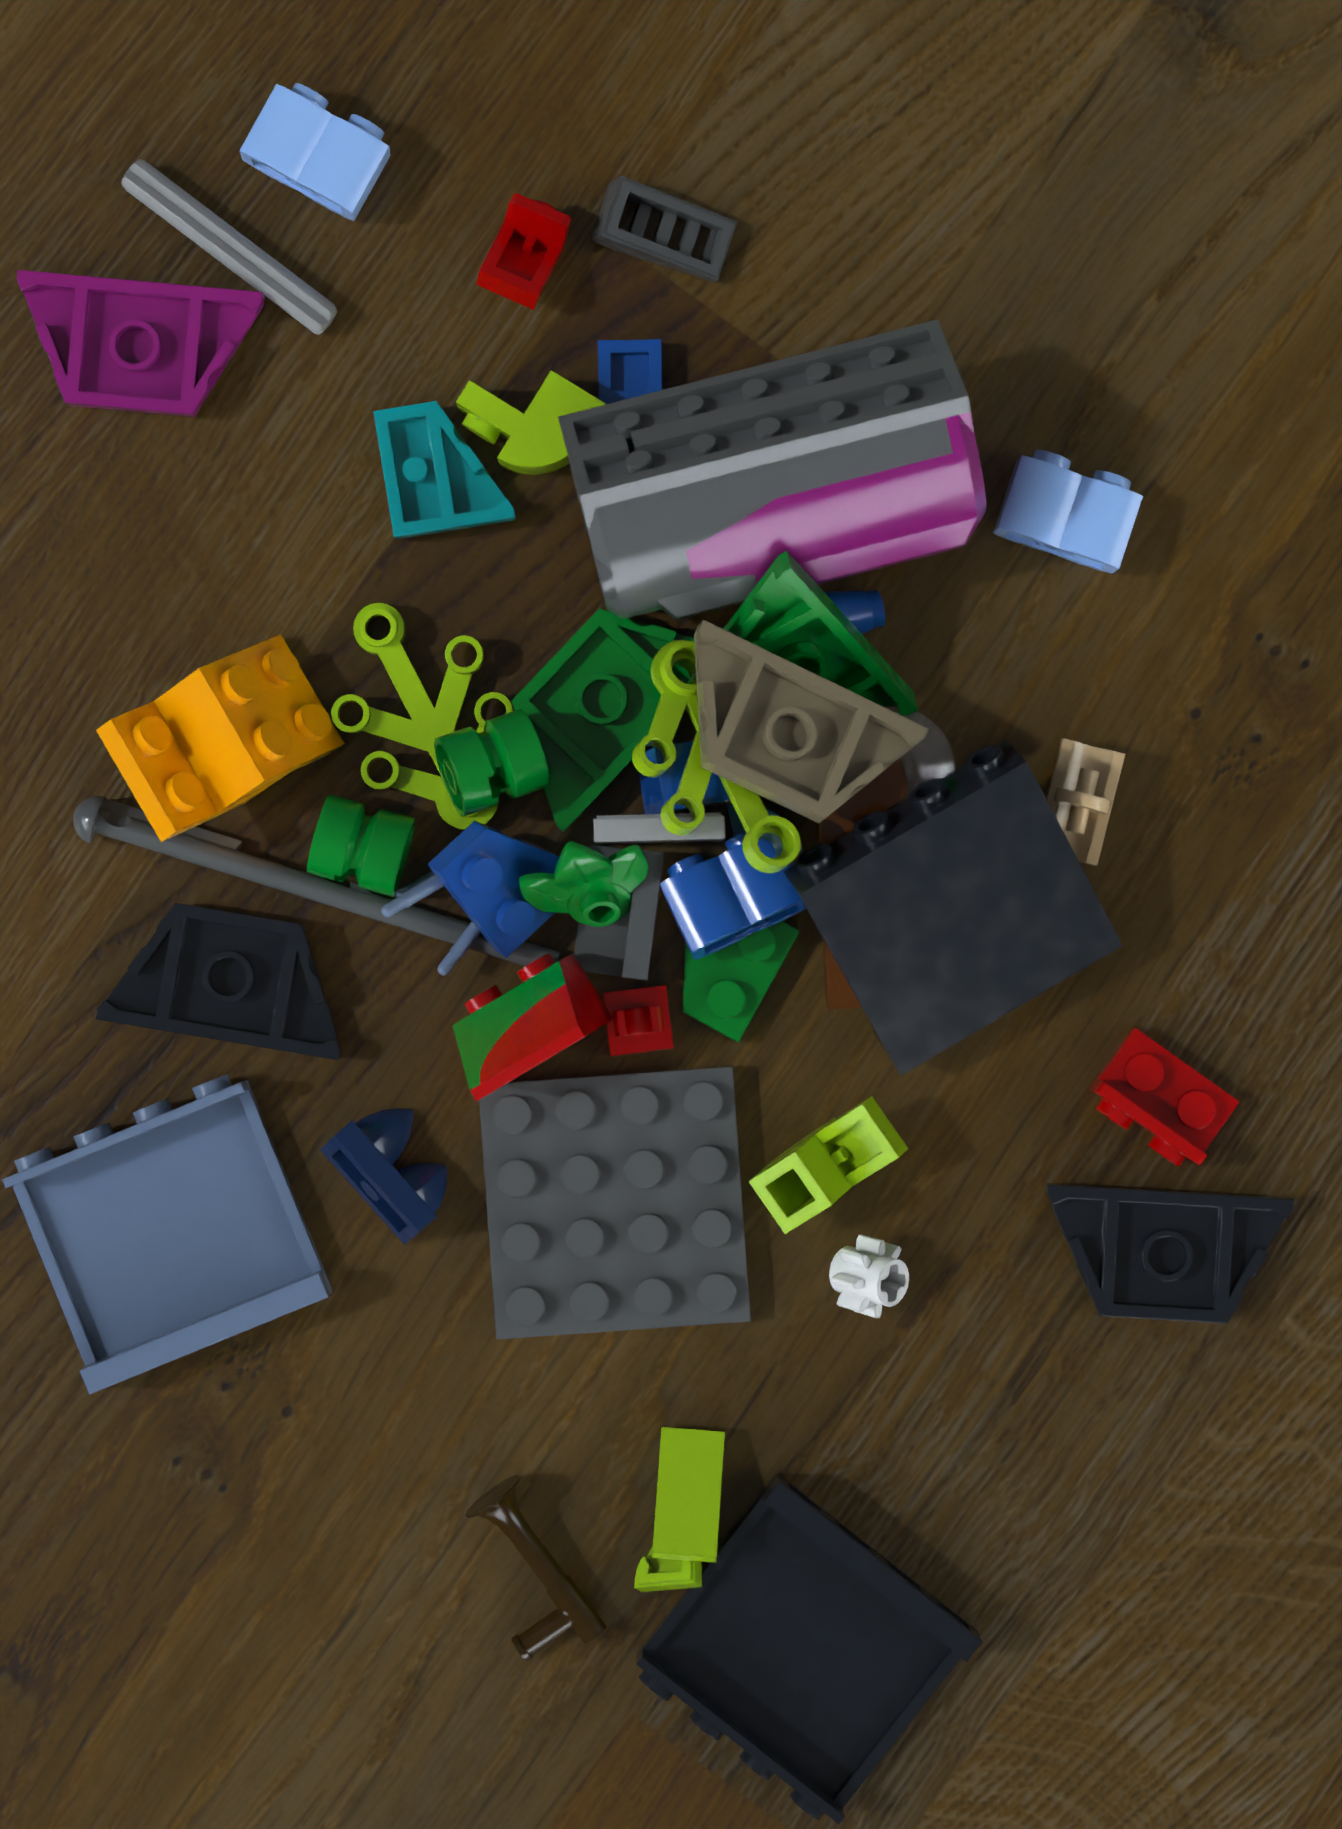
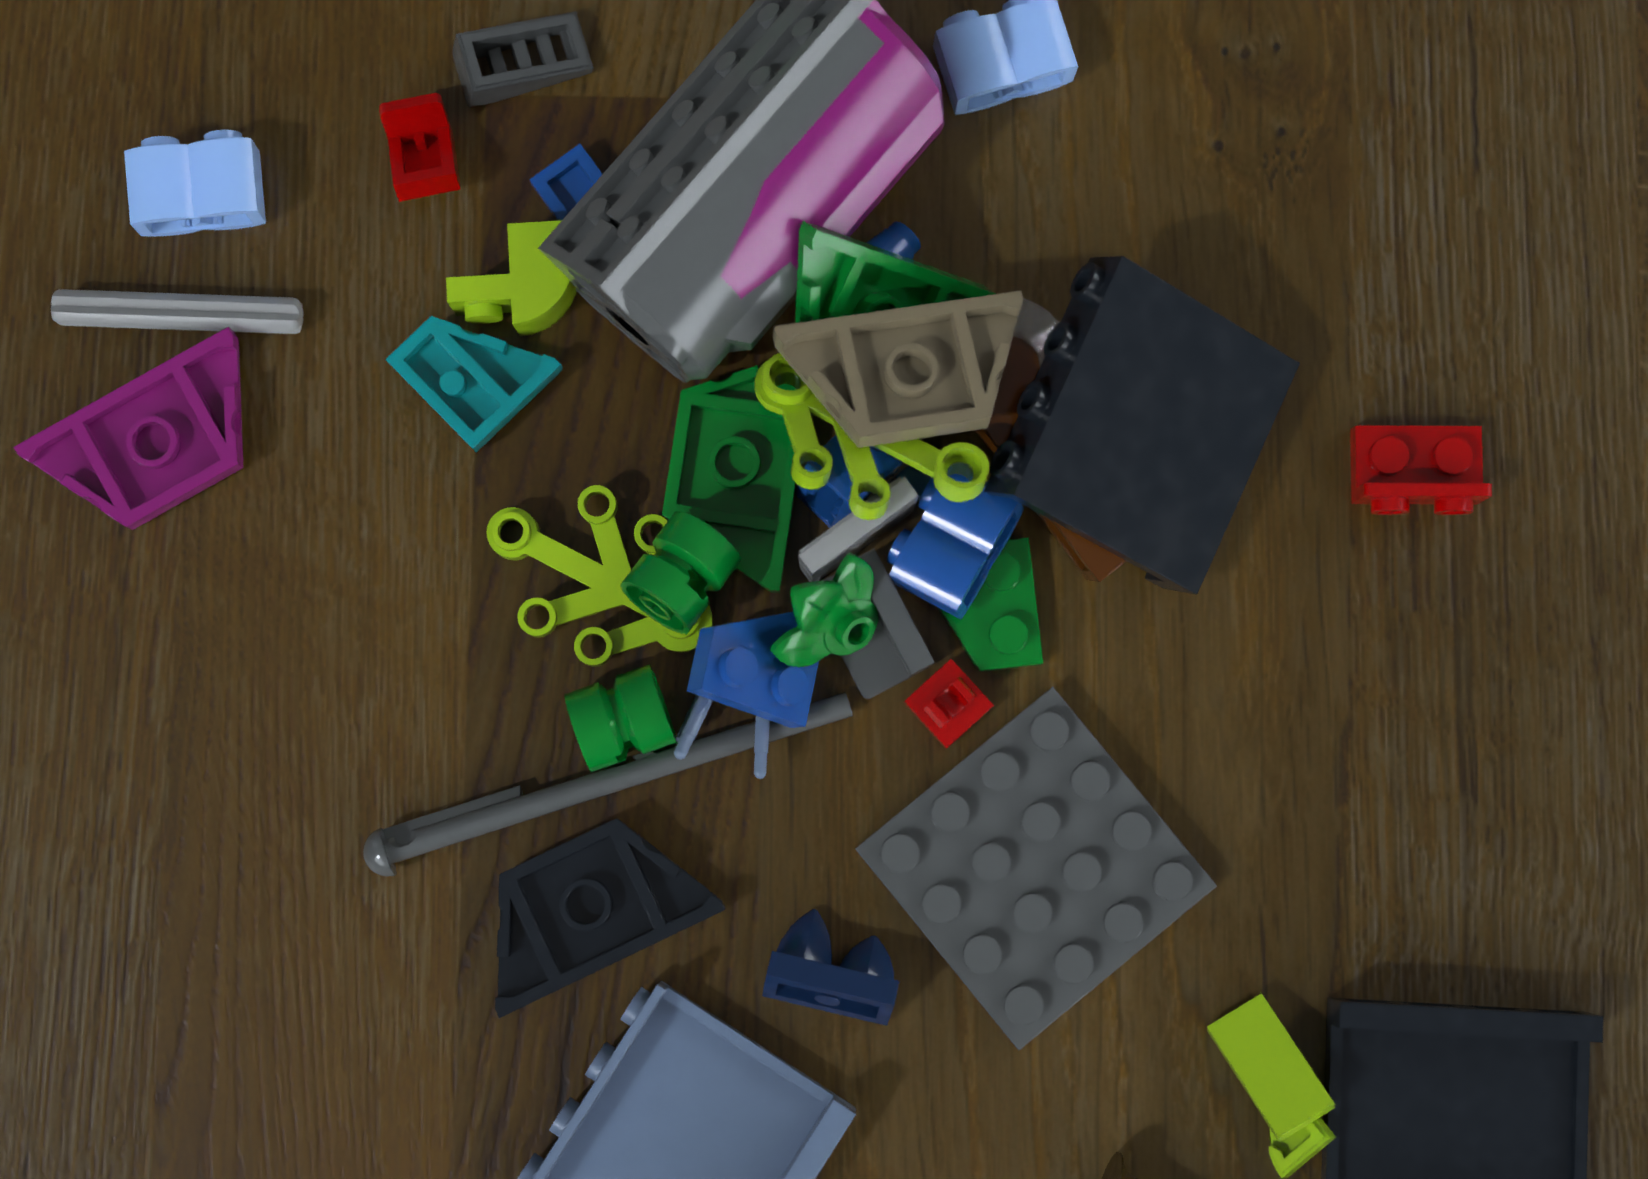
camera: 40 degrees left, 5 degrees down
(220, 737) = (441, 710): light orange bracket -> none
(527, 1024) = (861, 768): red slope -> none
(827, 1164) = (1188, 709): lime brick -> none
(869, 1276) = (1288, 778): white gear -> none
(1084, 794) = (1179, 257): tan hips -> none
(1166, 1248) = (1510, 586): black wing -> none

